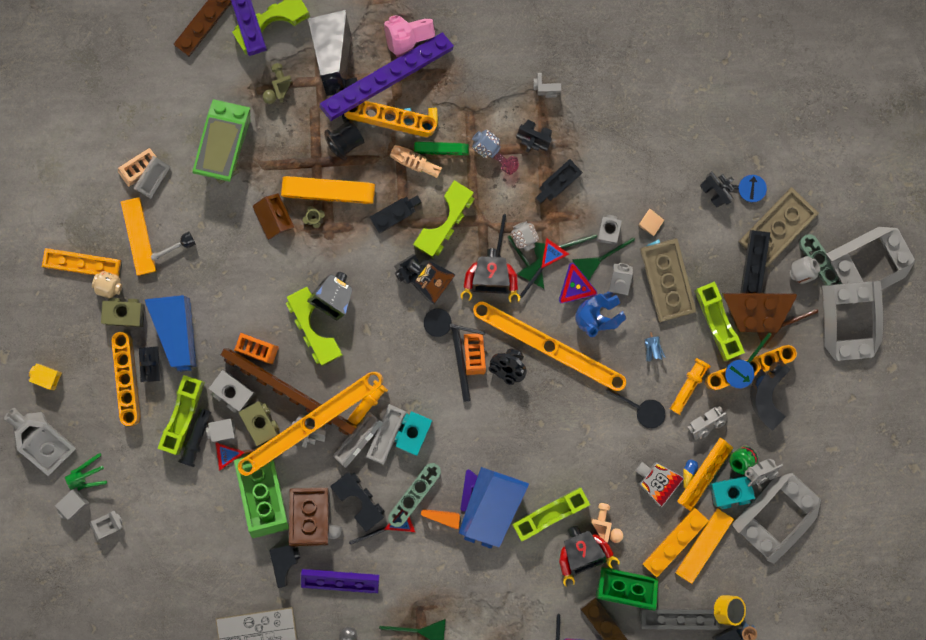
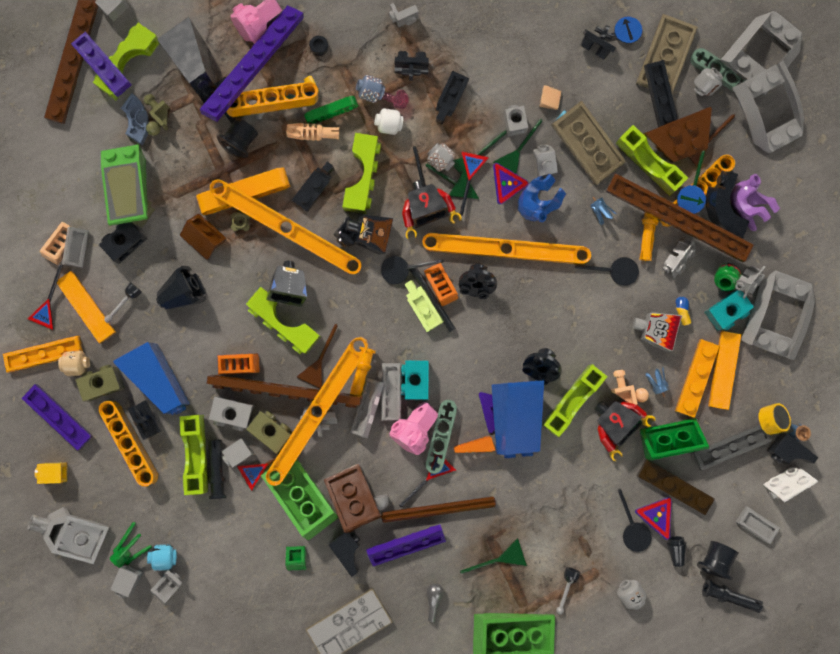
camera: 25 degrees left, 0 degrees up
(70, 327) = (57, 417): none -> dark purple plate
(97, 226) = (43, 314): none -> piece
(113, 496) = (162, 557): none -> medium azure head
(189, 199) = (133, 240): none -> black brick
(232, 258) = (181, 290): none -> black cone
(234, 549) = (295, 558): none -> green slope
(258, 80) = (137, 119): none -> sand blue tile
(322, 386) = (313, 373): none -> reddish brown piece
(344, 230) = (274, 220): none -> light orange beam
(349, 486) = (407, 470): black arch -> none
(383, 561) = (438, 509): none -> reddish brown axle
(389, 480) = (412, 433): none -> bright pink piece
(448, 368) = (423, 306): none -> yellowish green hinge
(455, 82) = (319, 45): none -> black tile
(490, 182) = (389, 121): none -> white head
(535, 470) = (542, 366): none -> black plate
(637, 533) = (661, 385): none -> flat silver piece
(705, 474) = (698, 305): light orange tile -> none
(720, 386) = (679, 218): none -> reddish brown plate
(792, 392) = (746, 196): none -> medium lavender piece

